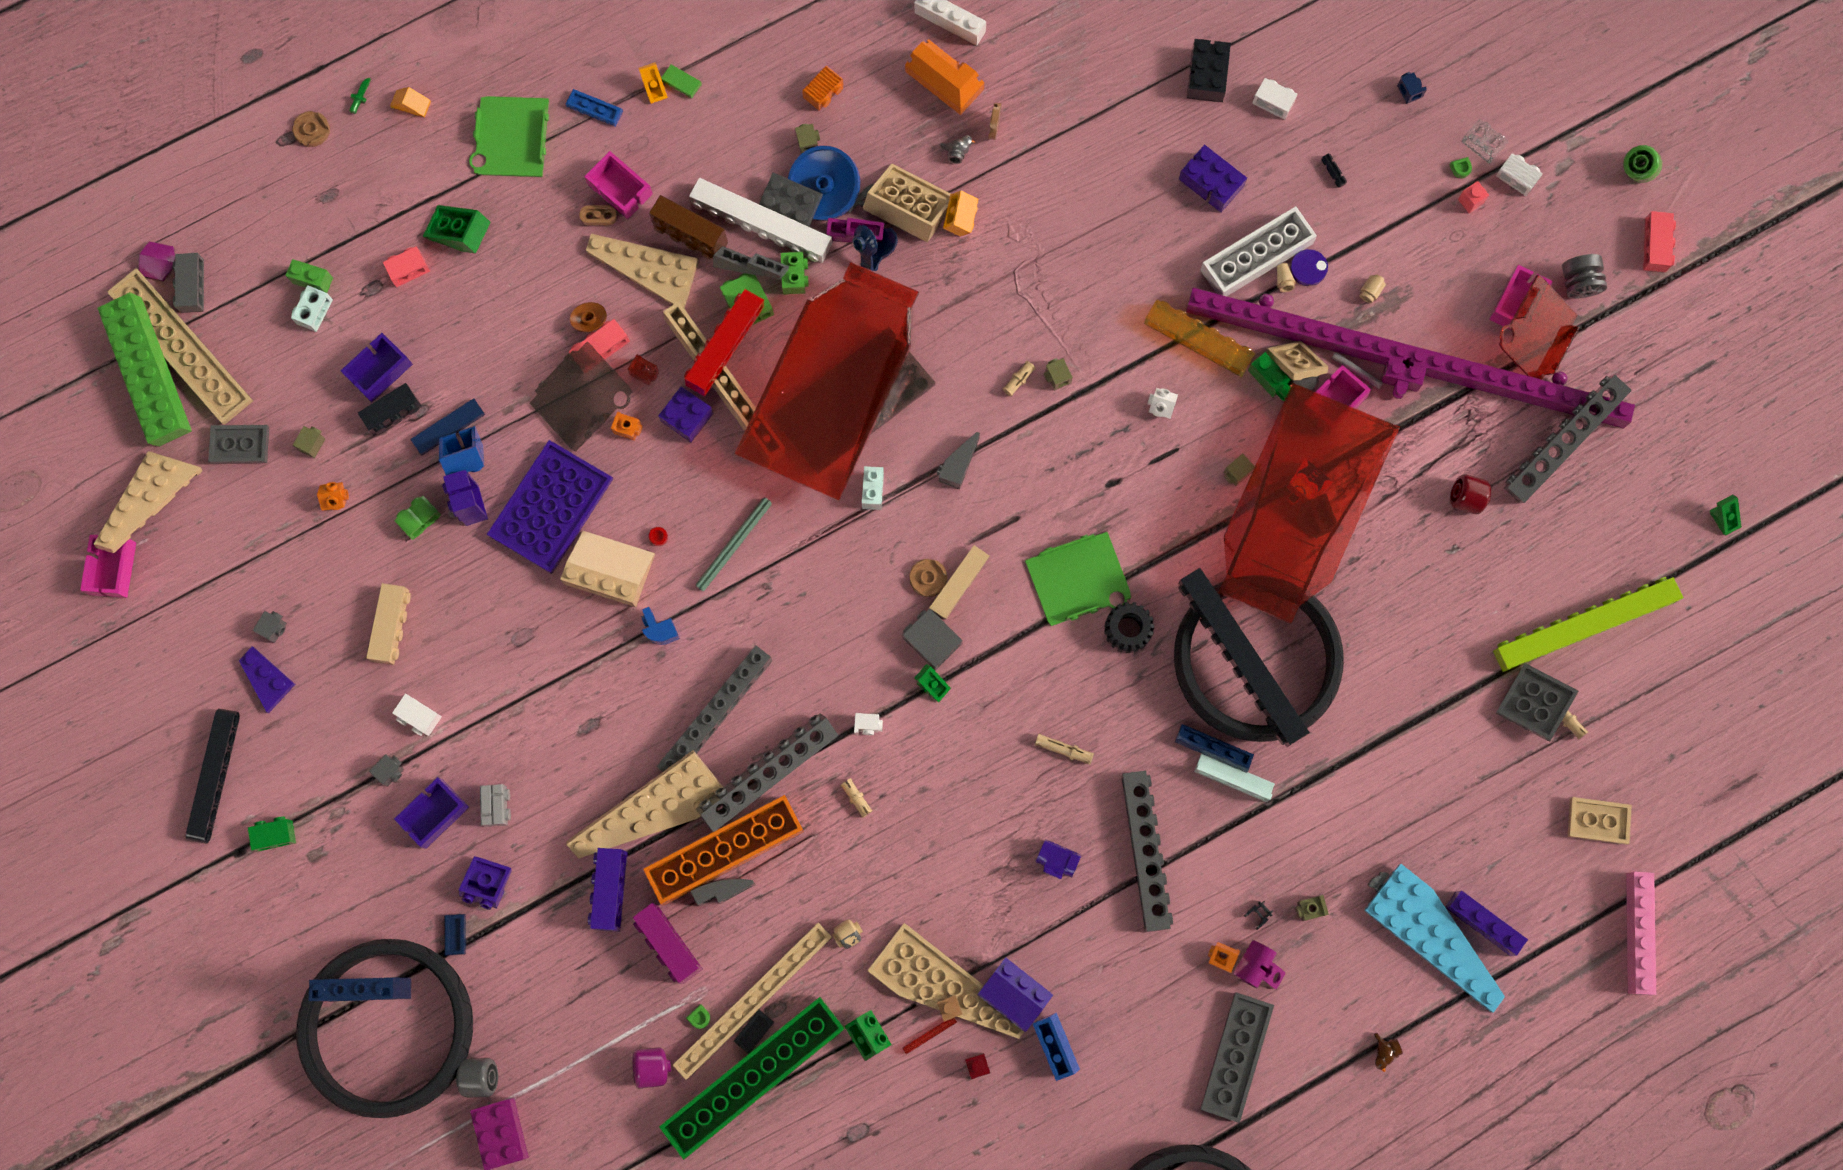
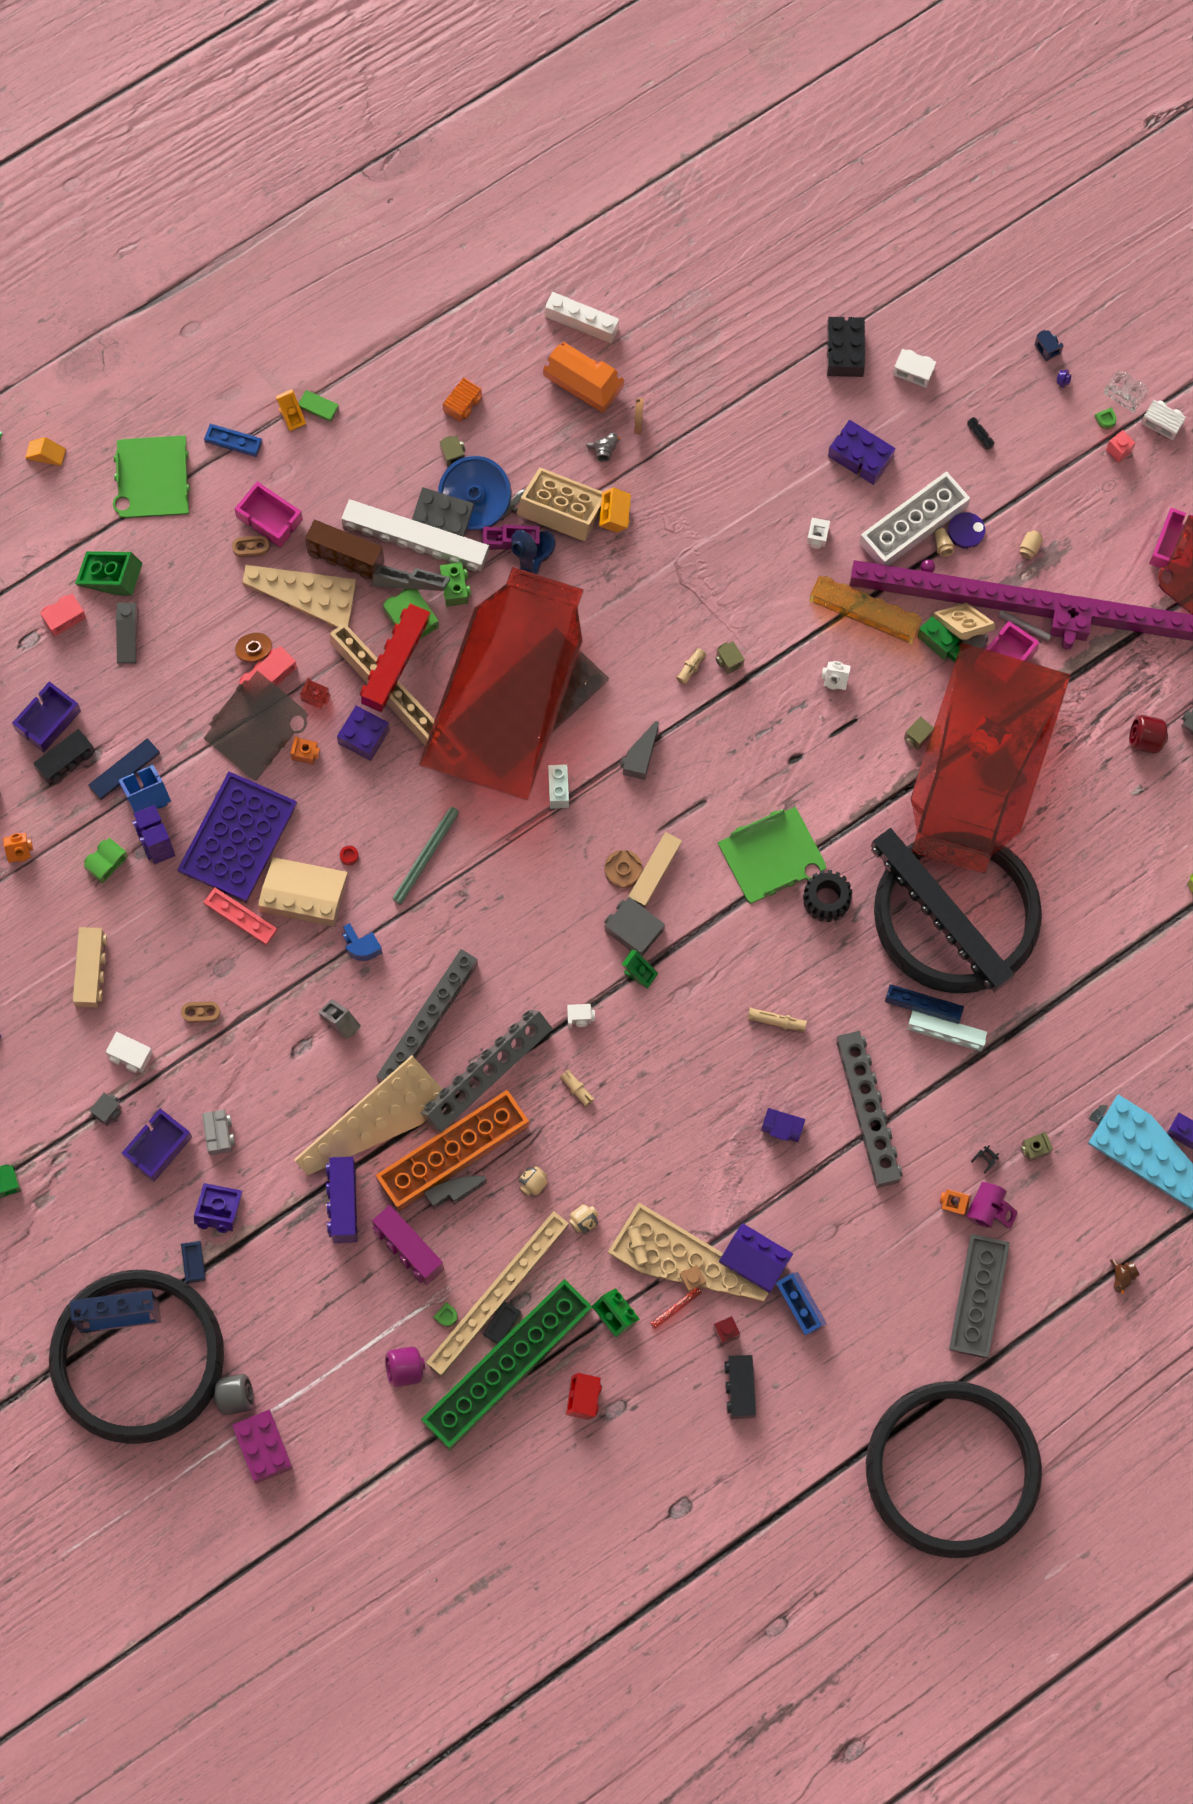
camera: 10 degrees left, 5 degrees down
(466, 289) = (126, 632): none -> dark grey slope
(493, 680) = (201, 1012): none -> medium nougat plate
(543, 587) = (240, 916): none -> coral plate
(628, 702) = (339, 1019): none -> flat silver slope
(800, 889) = (533, 1181): none -> tan head
(826, 1118) = (583, 1396): none -> red brick
(898, 969) = (638, 1245): none -> tan pin
(985, 1125) = (740, 1387): none -> black brick
(1163, 251) = (818, 527): none -> white brick
(1423, 122) = (1064, 378): none -> dark purple plate

